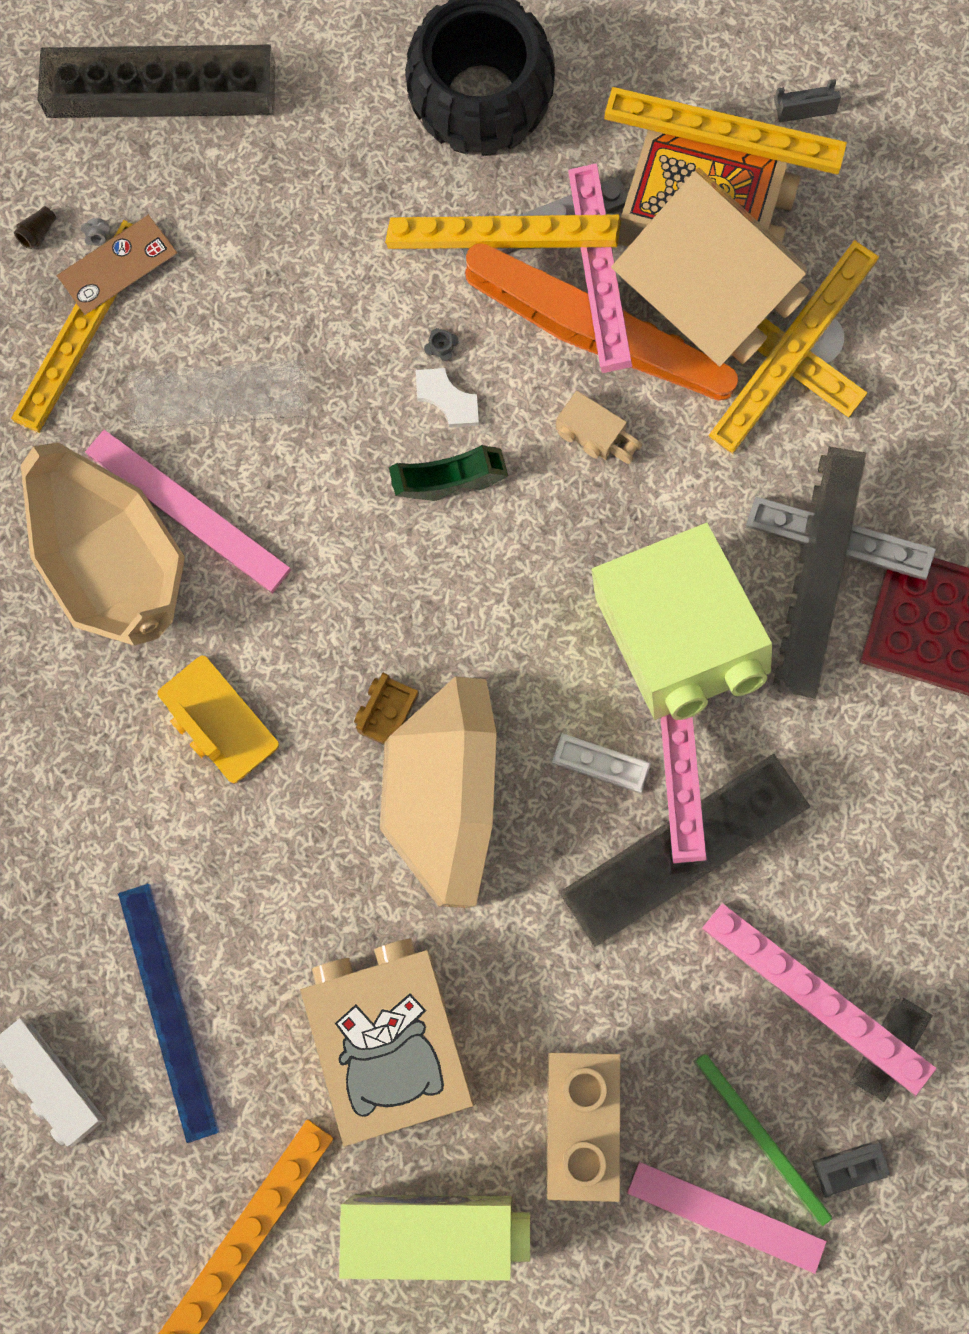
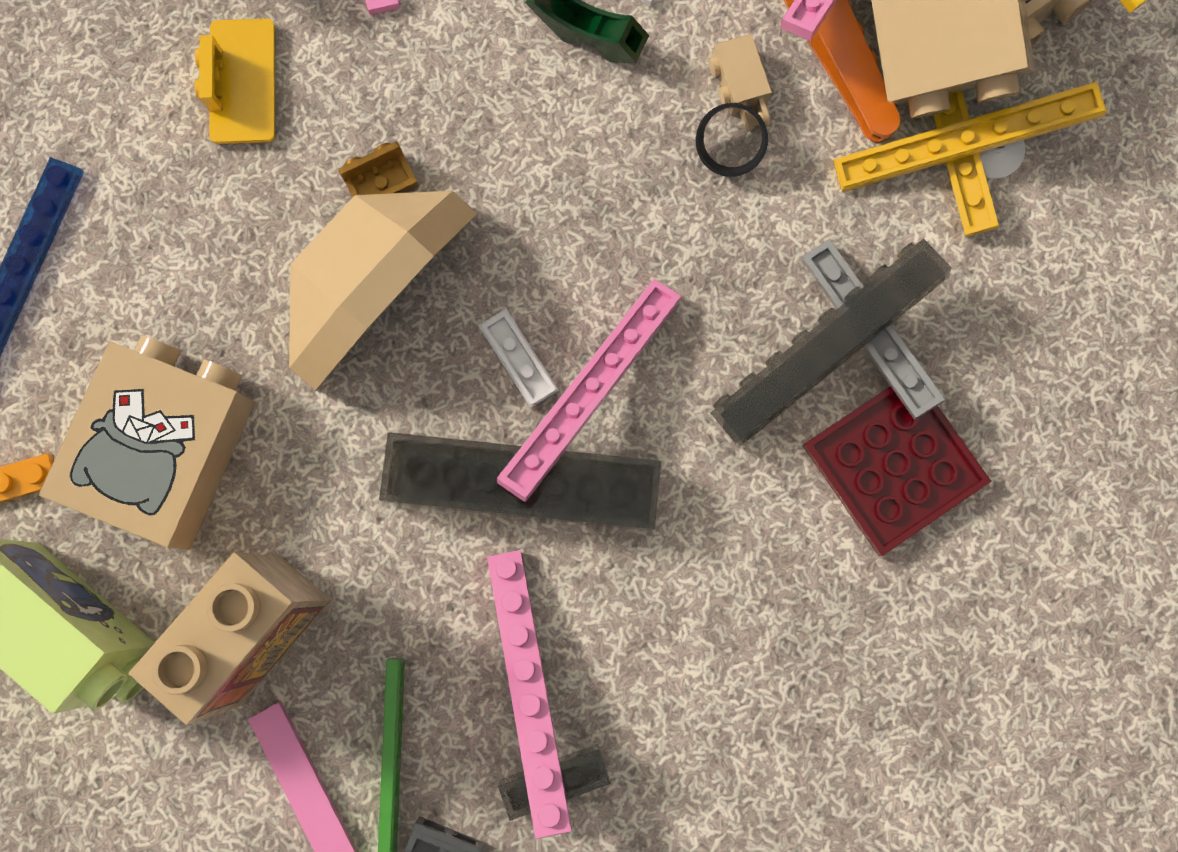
camera: 30 degrees right, 5 degrees up
(651, 491) = (720, 169): none -> black tyre
(683, 623) = (674, 292): yellowish green brick -> none

